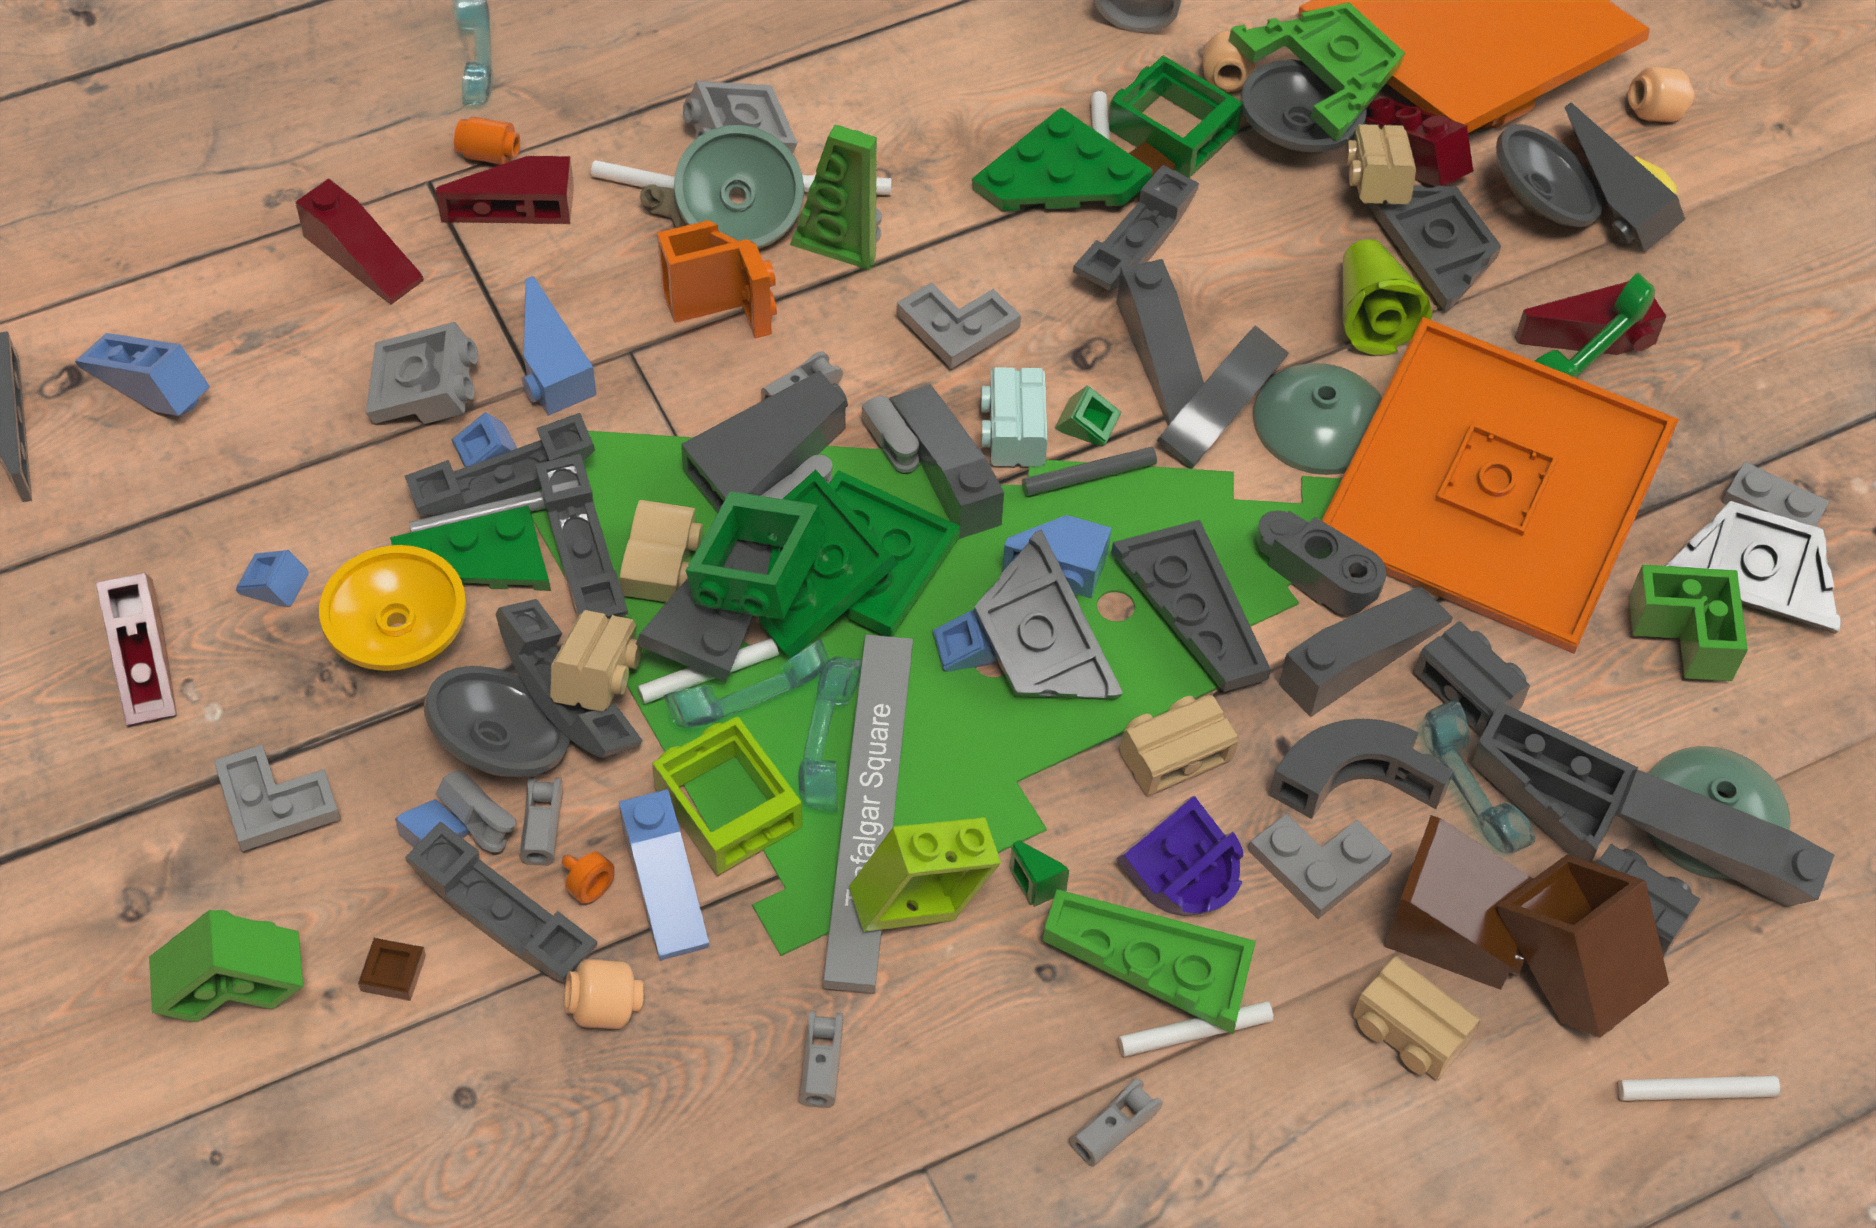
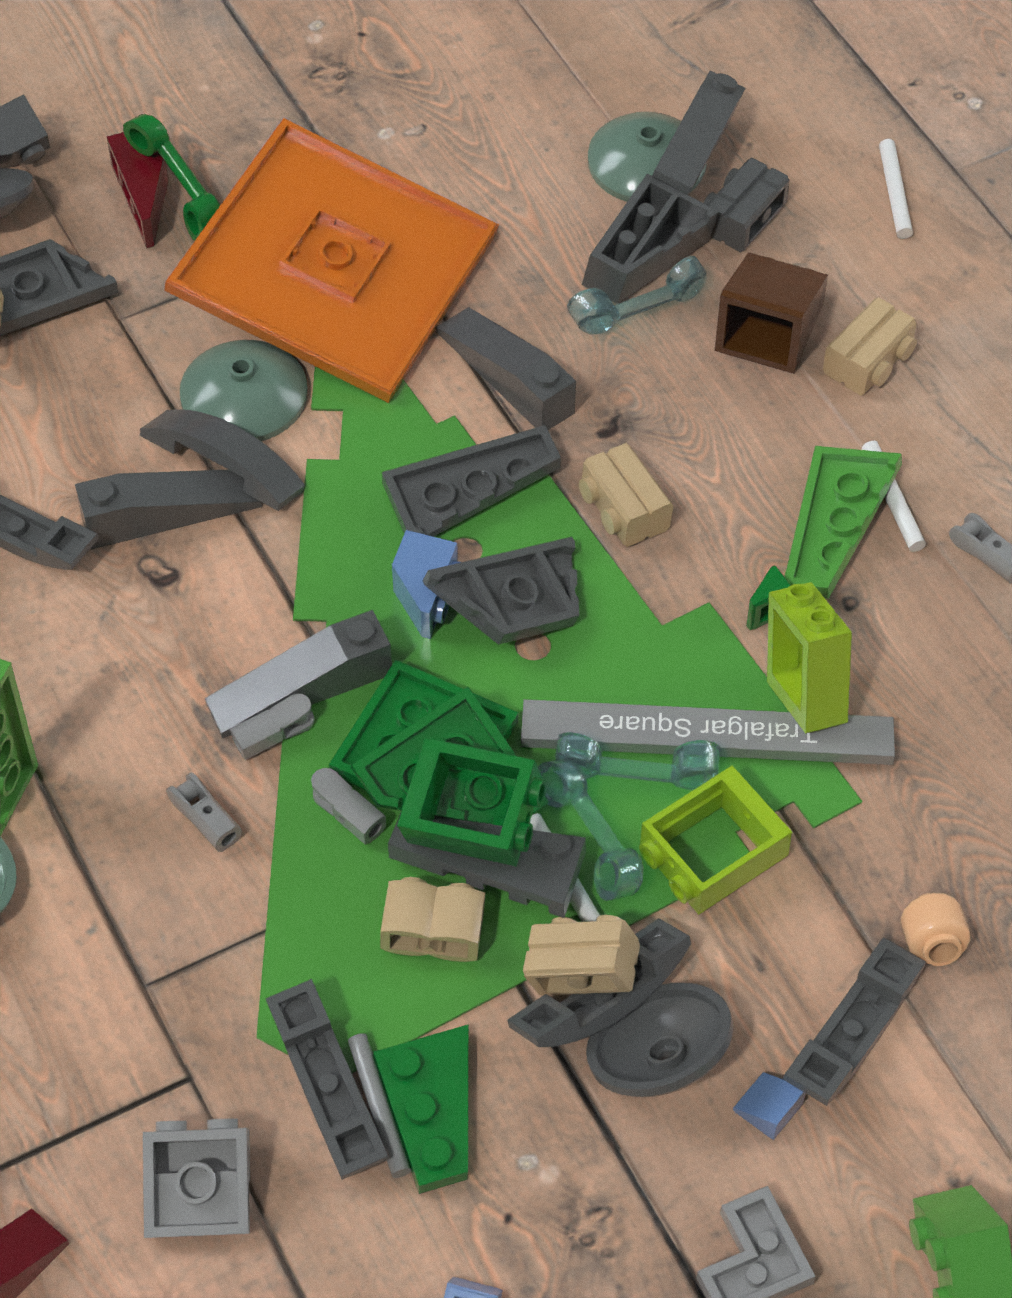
camera: 90 degrees left, 0 degrees up
(388, 589) = (530, 1128): yellow dish -> none
(392, 969) = (925, 1123): reddish brown tile -> none
(476, 810) = (749, 1061): light grey bar -> none
(483, 440) = (283, 1113): medium blue slope -> none
(541, 822) = (759, 1004): light grey bar -> none
(554, 361) = (163, 1051): medium blue slope -> none
(579, 537) = (428, 997): dark grey slope -> none
(588, 876) = (812, 953): orange tile -> none
(663, 874) = (798, 892): slope -> none
(715, 273) = (85, 849): orange piece -> none
(765, 440) = (299, 834): dark grey slope -> none
(821, 1061) = (972, 758): light grey bar -> none
(953, 331) = (136, 676): light grey plate -> none
(963, 643) = (520, 663): medium blue slope -> none
(1016, 417) = (255, 618): light aqua brick -> none
(1088, 417) = (244, 570): green slope -> none
(1089, 471) = (314, 566): dark grey bar -> none
(1186, 862) = (741, 493): dark purple slope -> none
(1315, 873) = (732, 410): light grey plate -> none
(1344, 574) = (424, 385): dark grey piece -> none
(1353, 752) = (631, 393): dark grey arch -> none
(1379, 299) = (110, 328): lime cone -> none
(1467, 670) = (538, 291): dark grey brick -> none
(1588, 942) = (800, 223): reddish brown slope -> none
(1699, 609) = (478, 133): bright green brick -> none
(1774, 495) = (349, 82): light grey plate -> none
(1776, 559) = (415, 98): wing -> none

